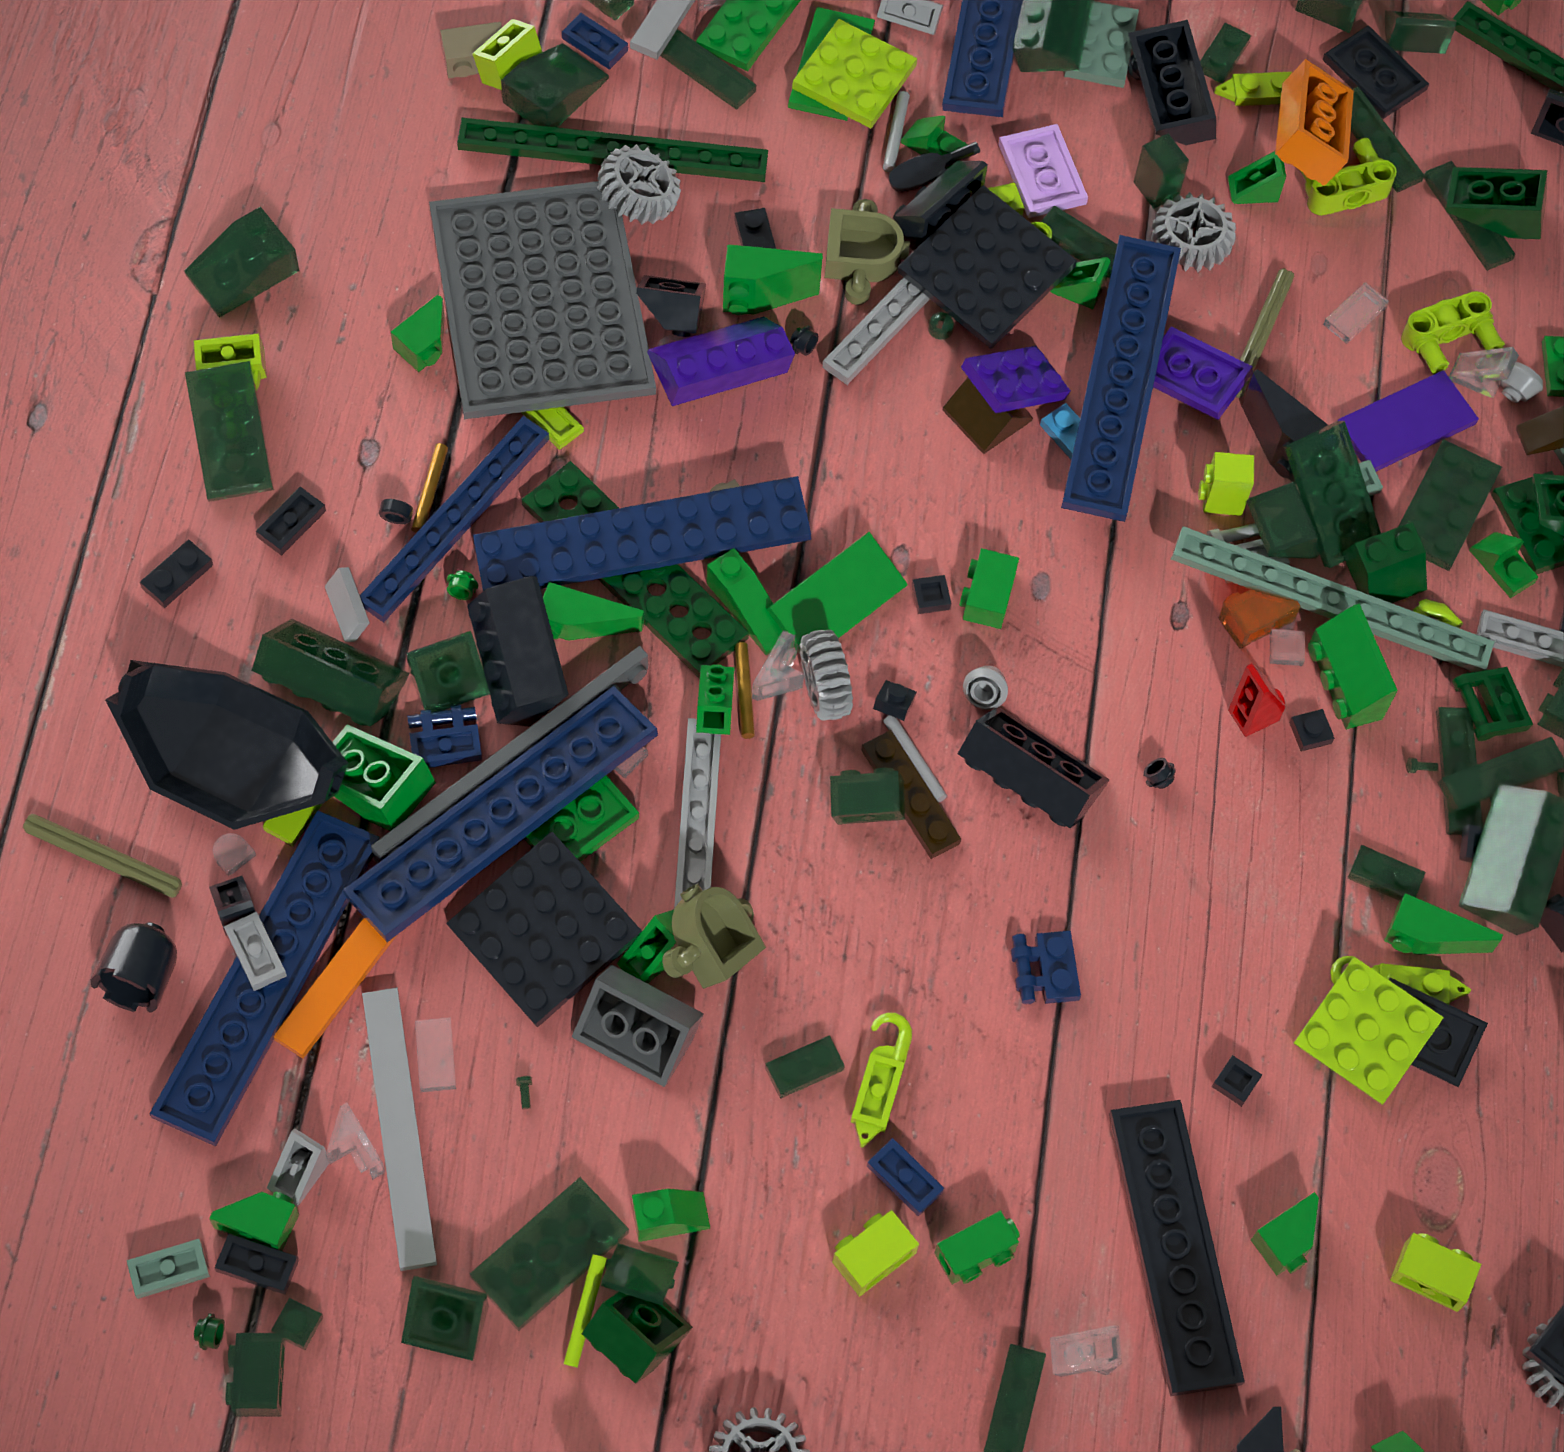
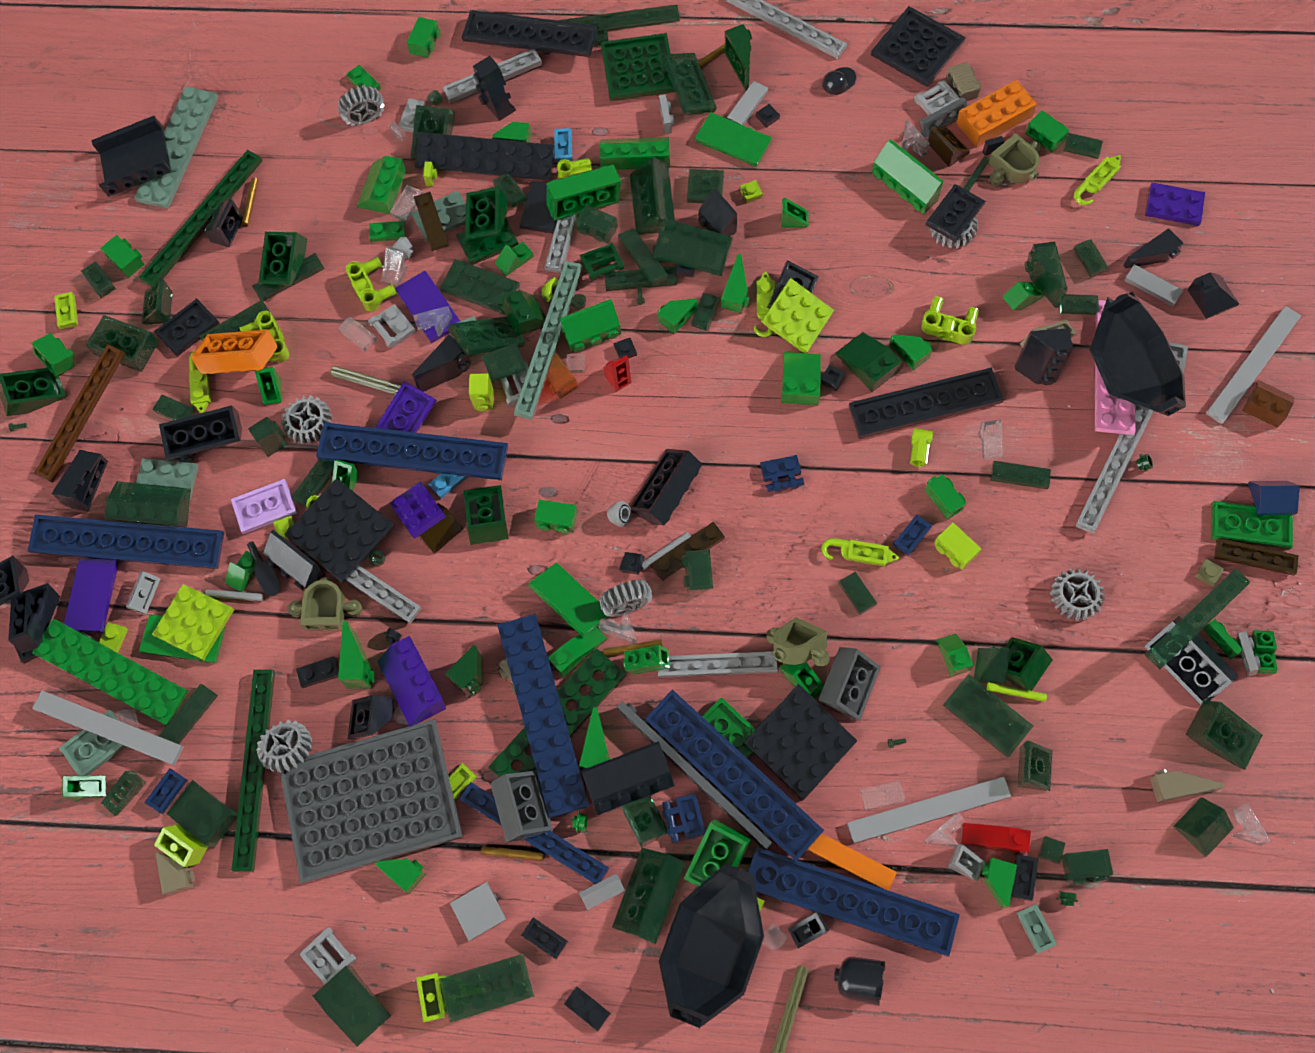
camera: 85 degrees left, 5 degrees up
(255, 951) = (843, 907): light grey plate -> none
(314, 227) = (321, 961): none -> light grey plate
(330, 1230) = (997, 838): none -> red slope
(348, 436) = (478, 911): none -> light grey tile
(395, 511) = (533, 871): black tile -> none
(496, 493) = (521, 805): none -> dark grey slope
(724, 435) = (468, 672): none -> dark green slope
(931, 594) = (561, 548): black plate -> none
(1002, 482) = (485, 515): none -> dark green slope
(1093, 1222) = (920, 443): none -> lime piece
(1159, 773) = (659, 425): black plate -> none
(1240, 1022) = (801, 378): none -> green slope
(1269, 1153) = (870, 360): none -> dark green slope
(1337, 1317) = (948, 326): none -> lime piece
(1372, 424) = (439, 318): none -> clear slope
(1373, 374) = (397, 323): none -> light grey plate
(1379, 820) = (676, 313): none -> green slope
(1414, 662) = (579, 301): none -> clear green hinge
(1436, 1271) = (918, 284): lime brick -> none

